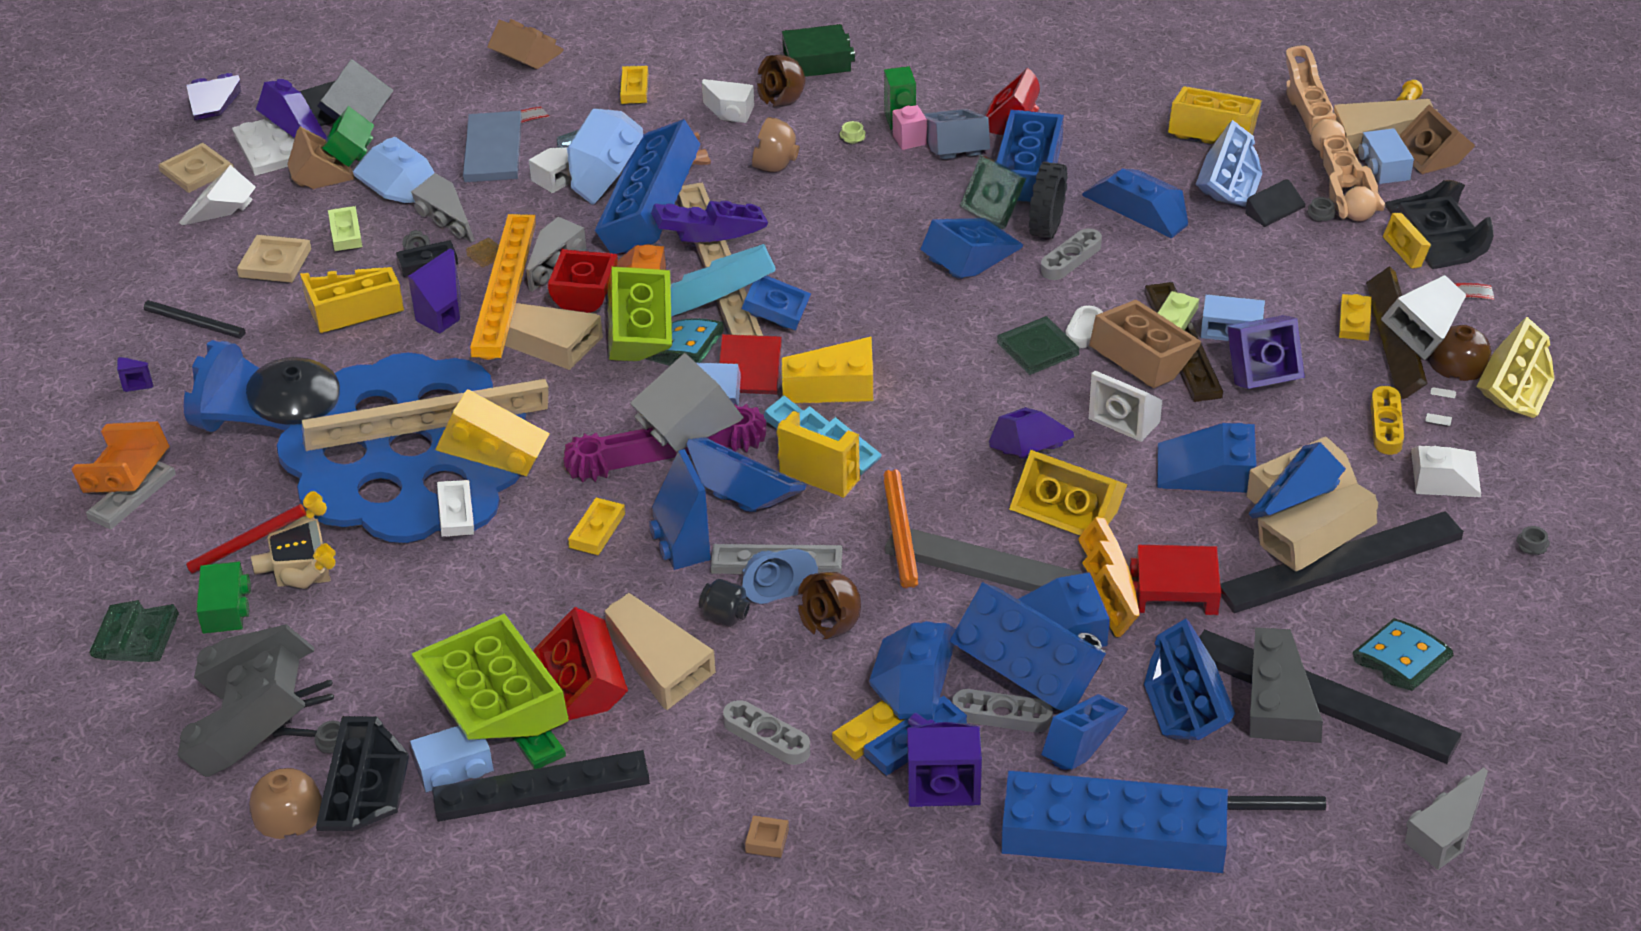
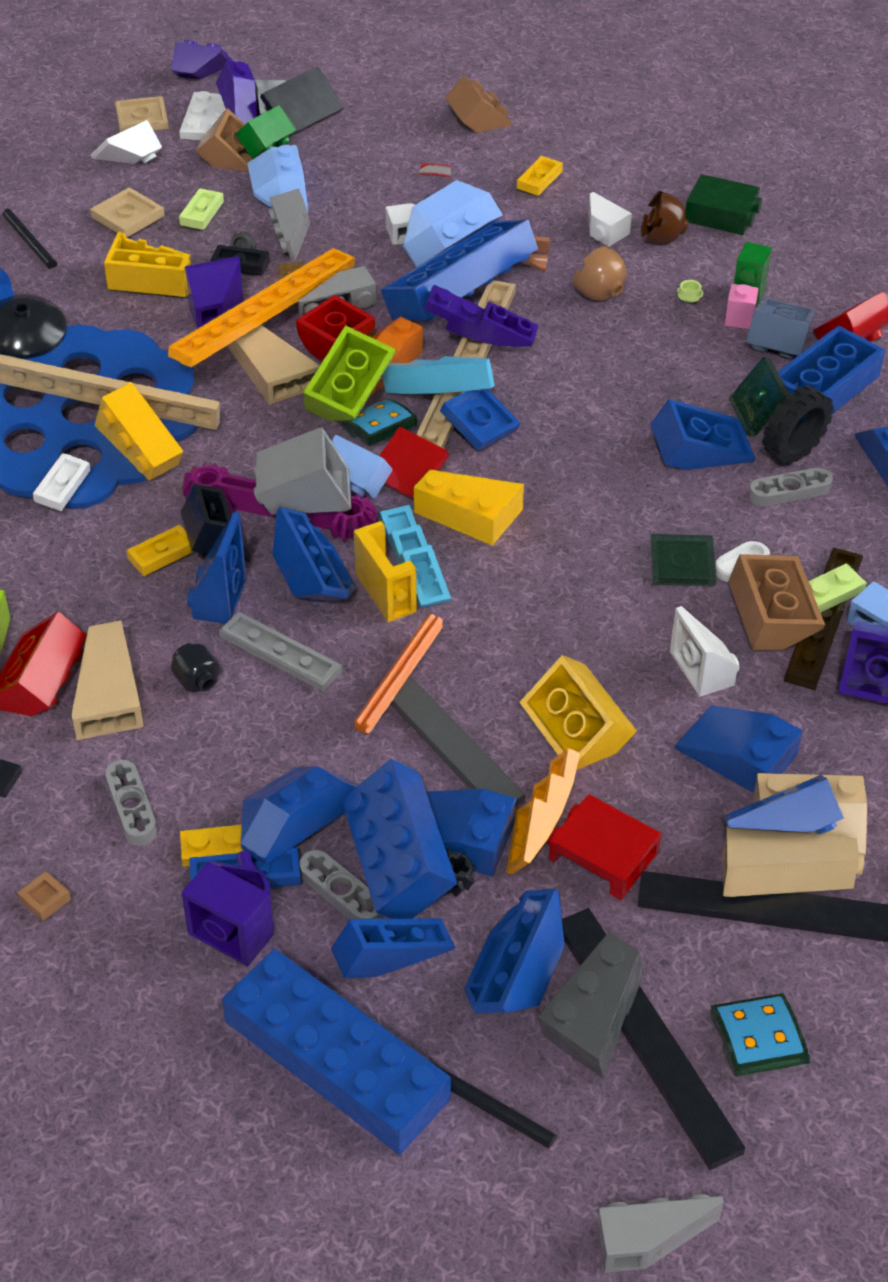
camera: 30 degrees right, 5 degrees up
(492, 146) = (379, 185): sand blue tile -> none
(628, 478) = (205, 516): none -> black slope
(776, 574) = (256, 665): medium blue piece -> none
(827, 597) = (281, 710): reddish brown cylinder -> none
(1027, 431) = (587, 637): dark purple slope -> none

